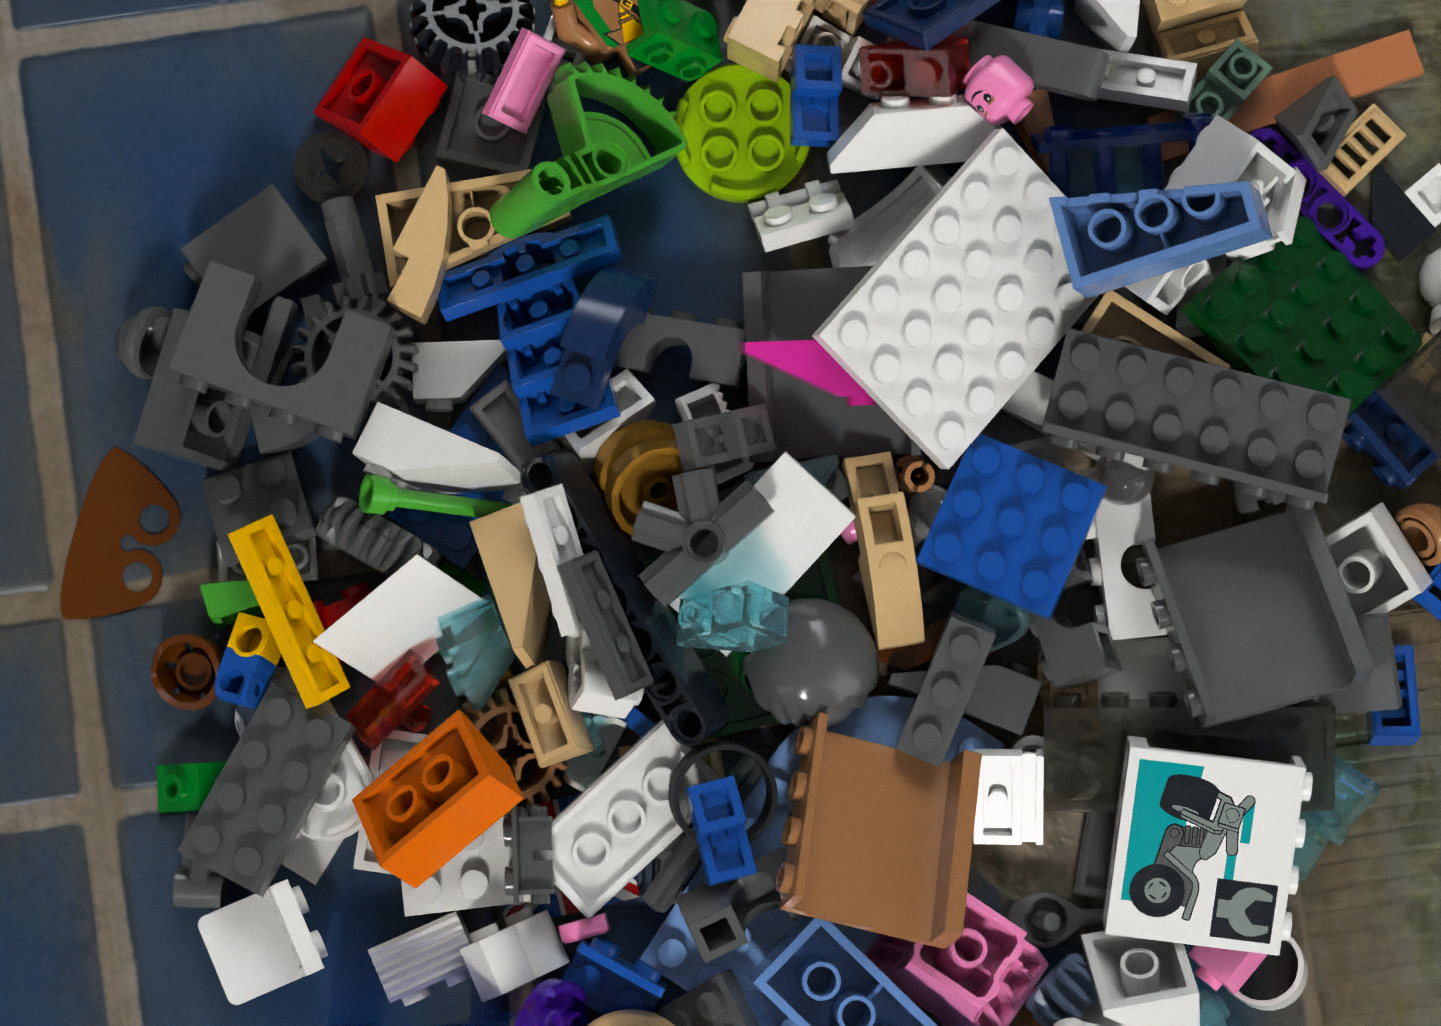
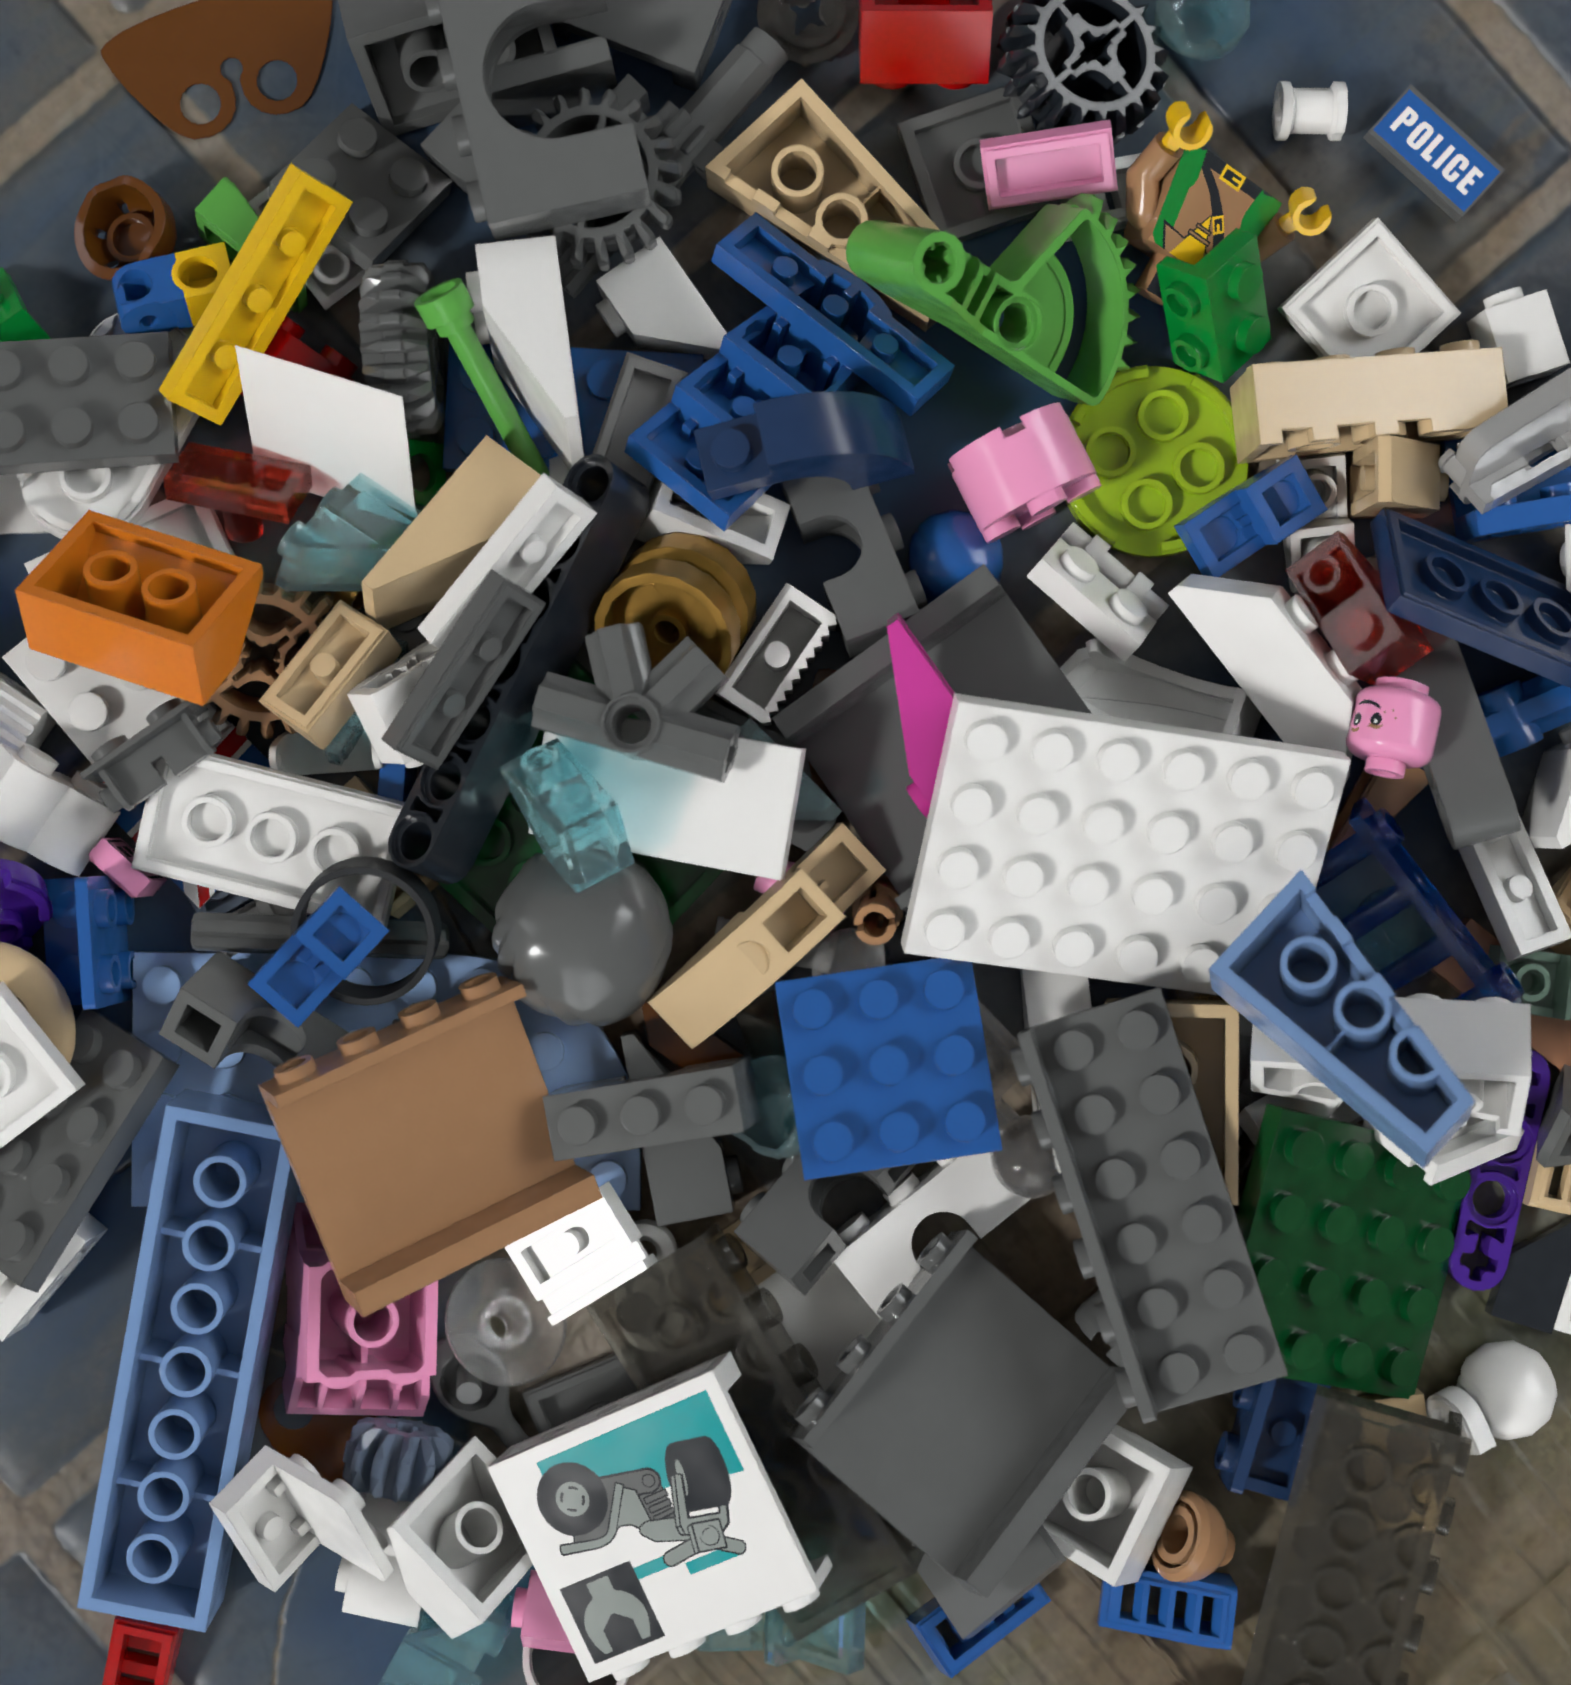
camera: 60 degrees right, 5 degrees up
(425, 248) = (778, 174): tan slope -> none
(700, 214) = (1023, 472): none -> bright pink brick
(718, 288) = (949, 550): none -> blue hair
(724, 437) = (775, 667): dark grey slope -> none
(1042, 865) = (529, 1340): none -> clear dish

